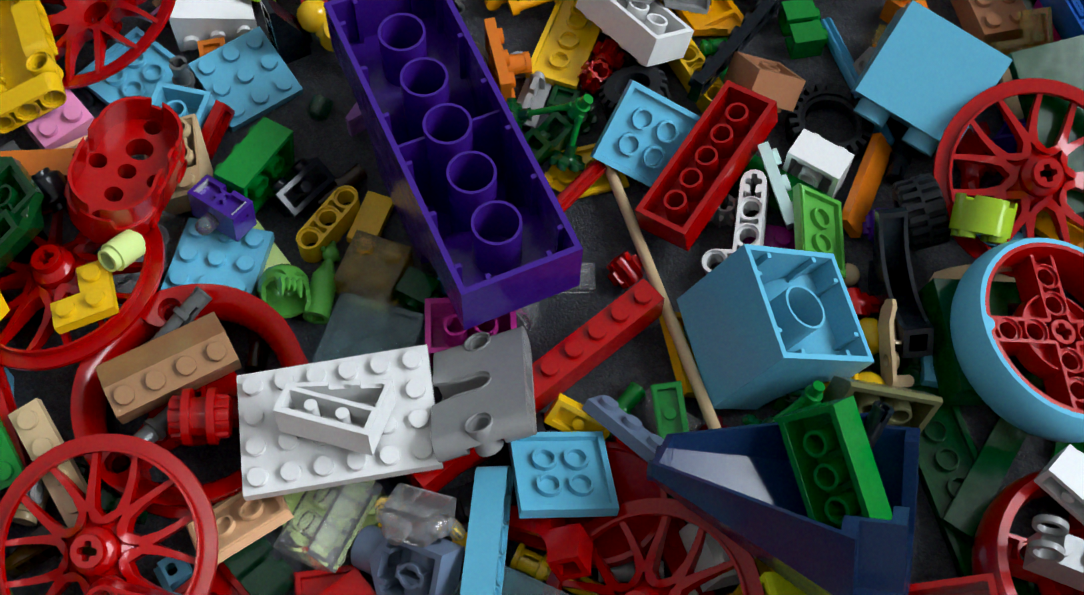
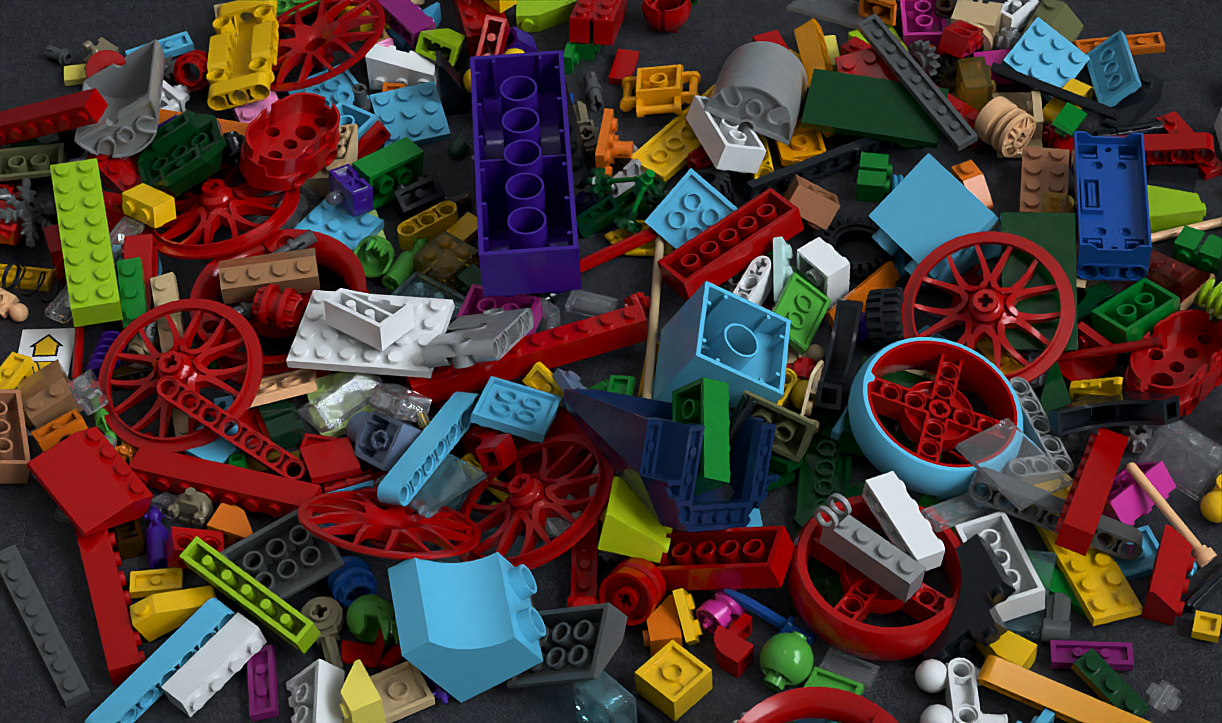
camera: 25 degrees right, 15 degrees down
(93, 303) = (236, 221): yellow plate -> none
(122, 250) = (266, 192): yellowish green brick -> none
(593, 75) = (679, 169): red gear -> none
(984, 217) = (919, 320): lime brick -> none

